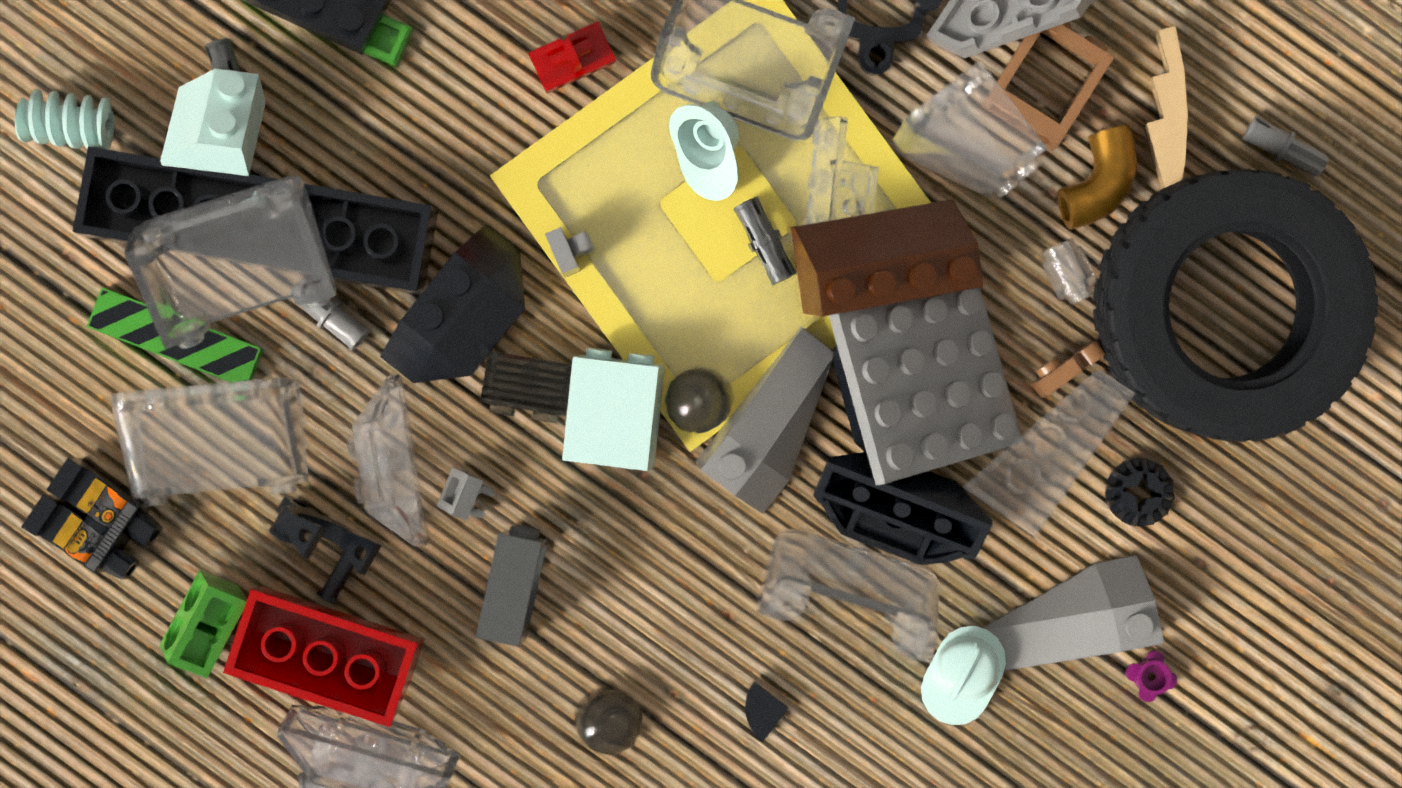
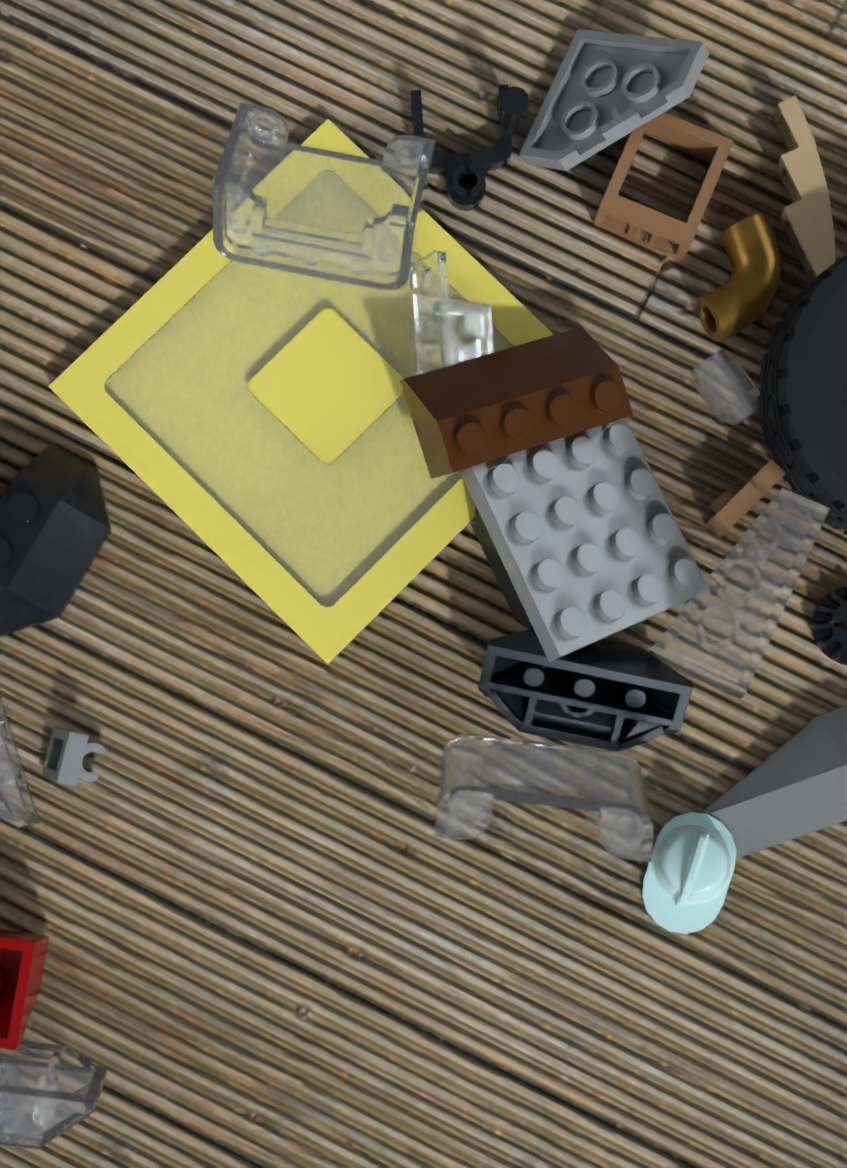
camera: 15 degrees left, 5 degrees down
(512, 586) = (140, 855): dark grey window -> none
(526, 385) = (126, 617): clear smoke brick -> none
(567, 250) = (149, 452): light grey tile -> none
(572, 57) = (122, 237): red hips -> none
(608, 721) = (281, 998): clear smoke hair -> none
(613, 410) = (230, 628): light aqua brick -> none
(699, 399) = (328, 601): clear smoke hair -> none
(705, 148) = (289, 312): light aqua piece -> none
(762, 710) = (461, 954): black tile -> none
(765, 240) = (374, 407): dark grey pin -> none
(766, 432) = (413, 625): light grey wedge -> none
(972, 135) = (589, 240): clear windscreen -> none

